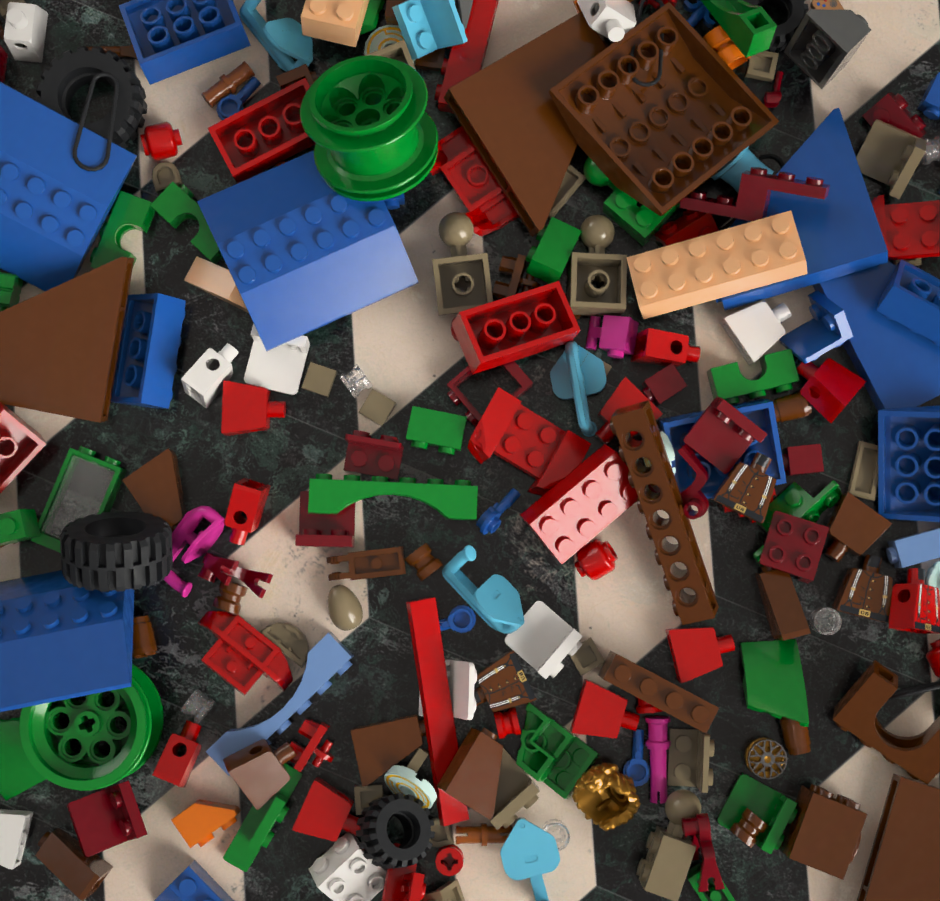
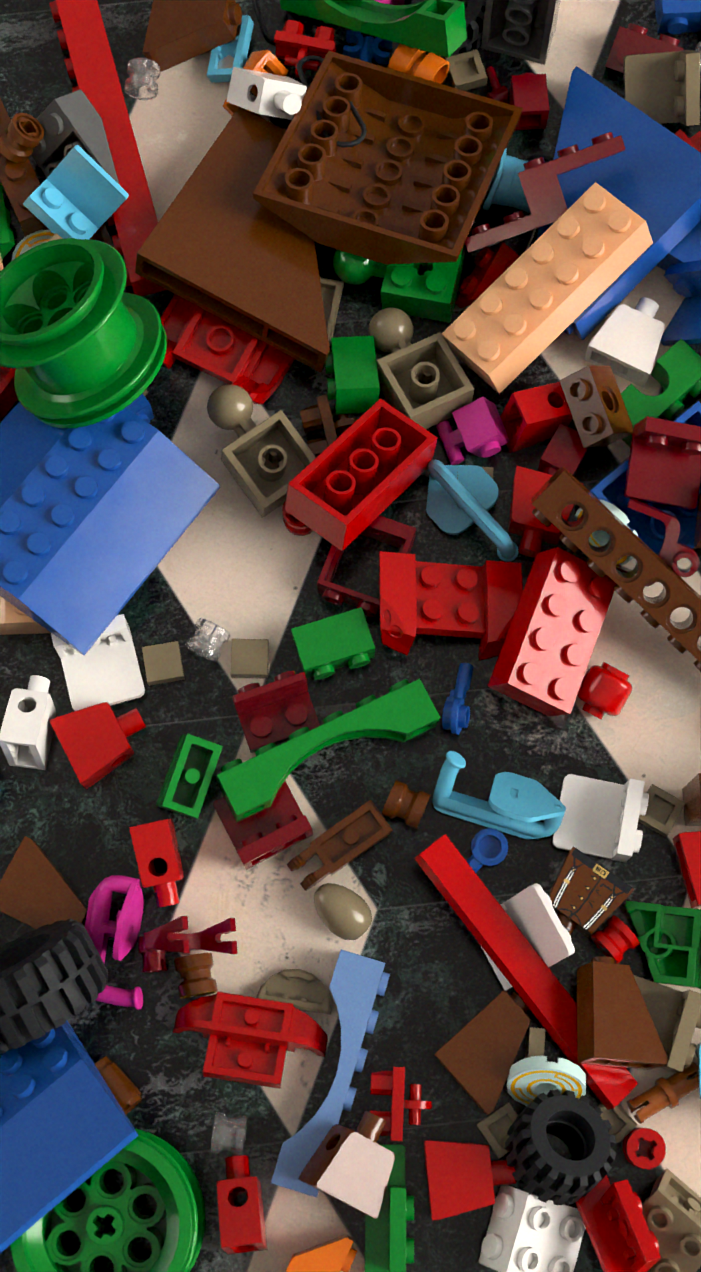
camera: 30 degrees left, 10 degrees down
(293, 467) = (189, 776): none -> green brick
(701, 366) = (596, 406): none -> reddish brown brick
(791, 114) = (531, 94): none -> dark red brick

